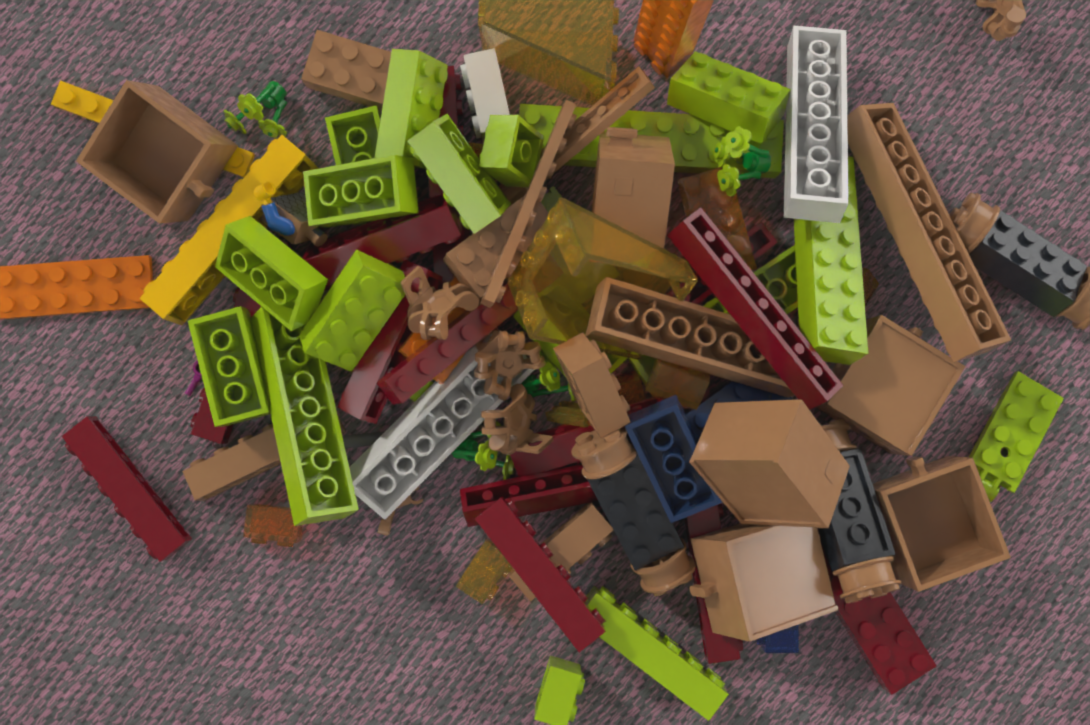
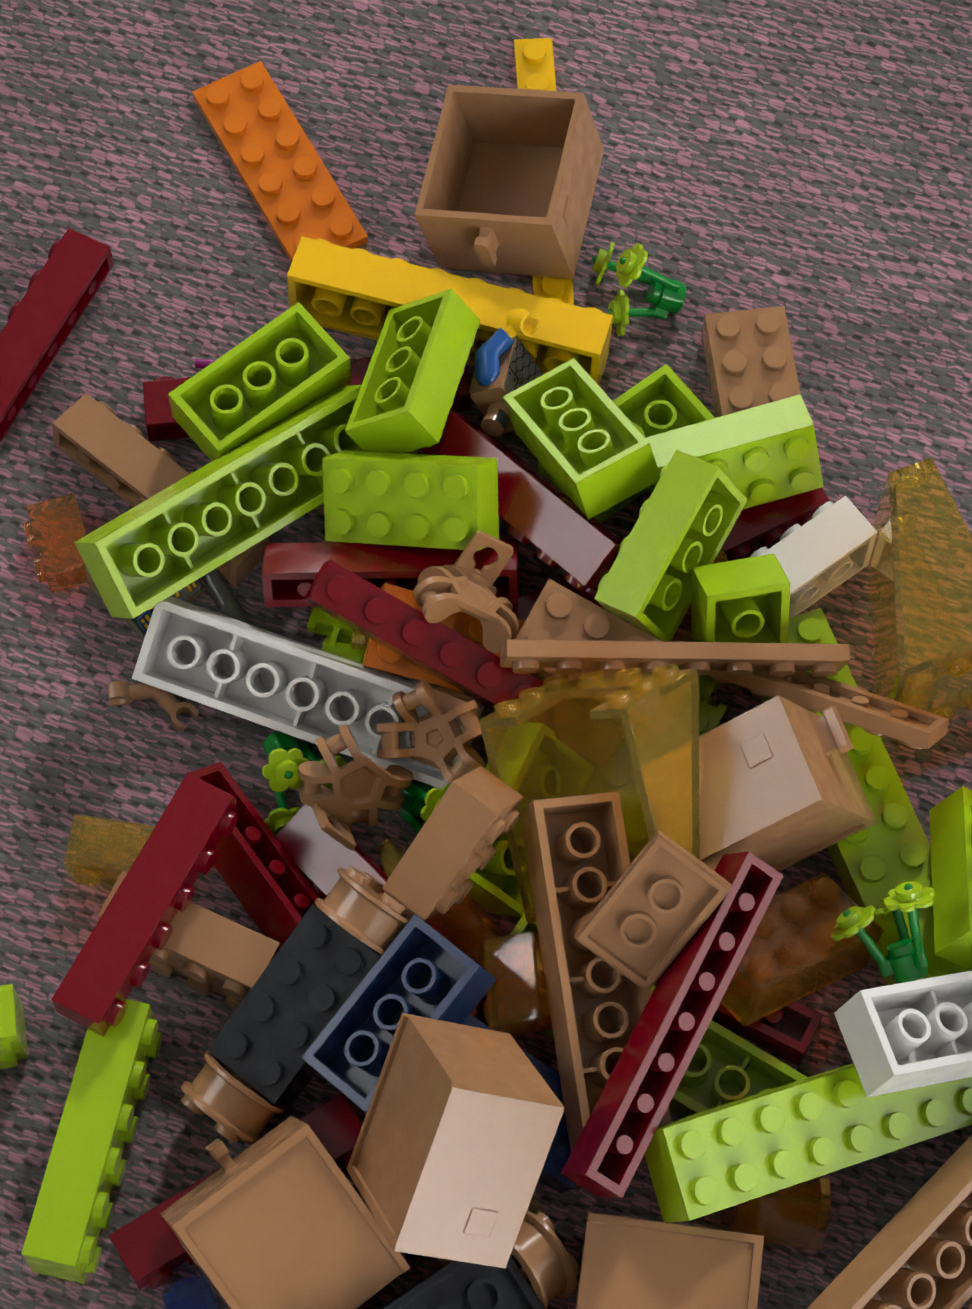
camera: 65 degrees right, 20 degrees down
(690, 291) = (653, 911): none -> medium nougat tile

